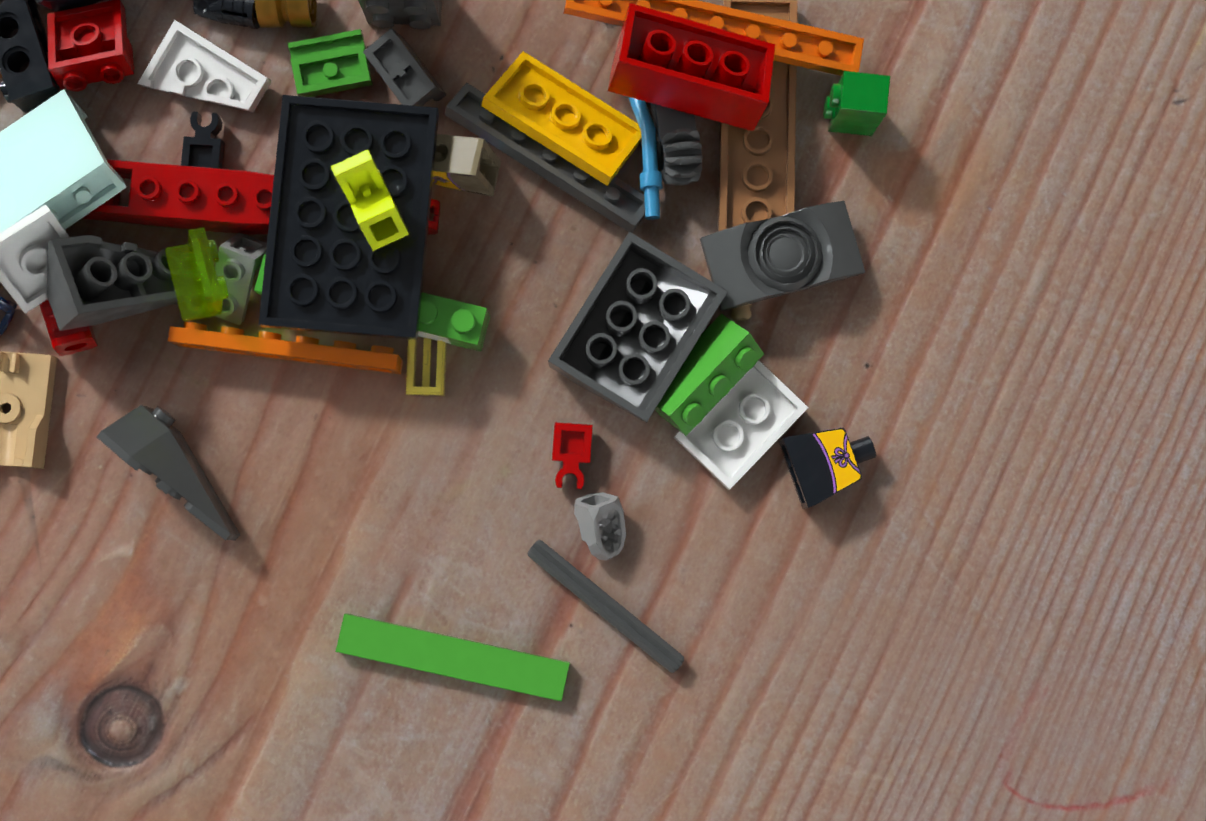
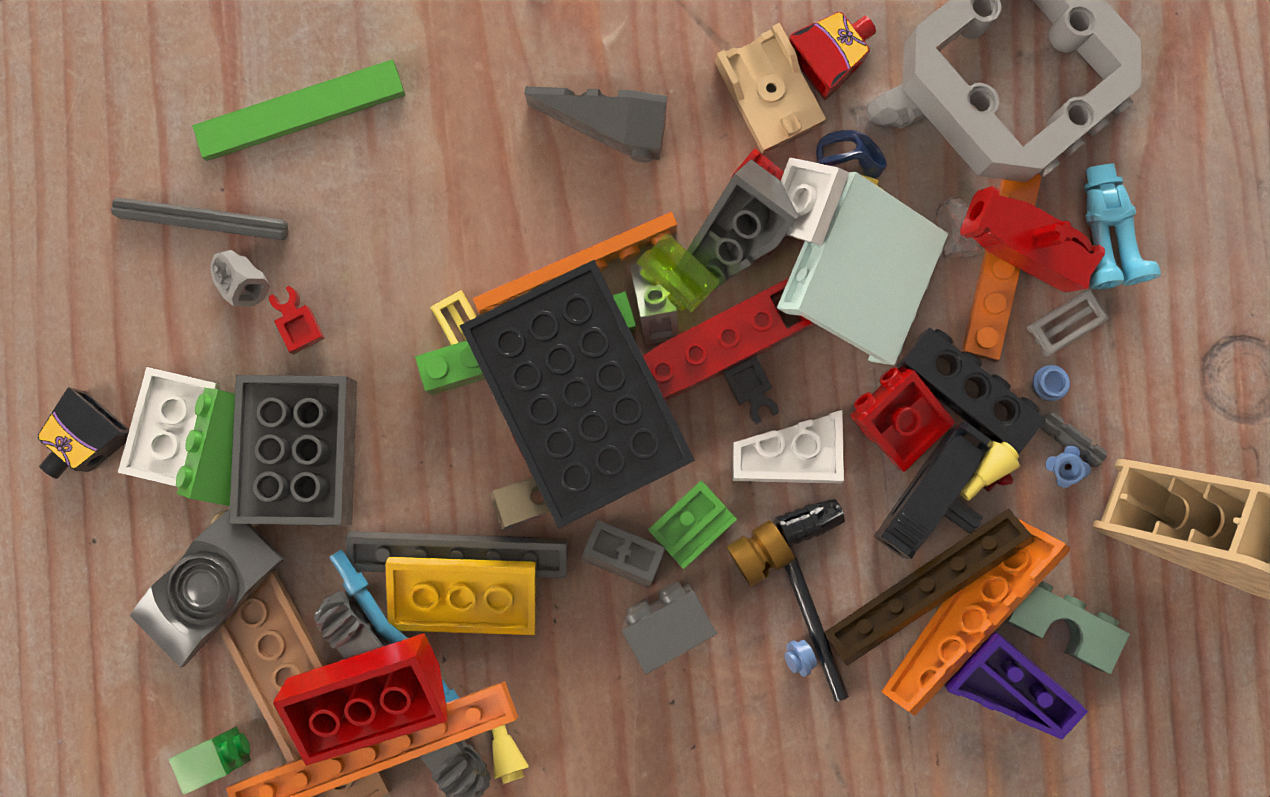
camera: 155 degrees right, 0 degrees up
(370, 200) = (554, 408): neon yellow brick -> none

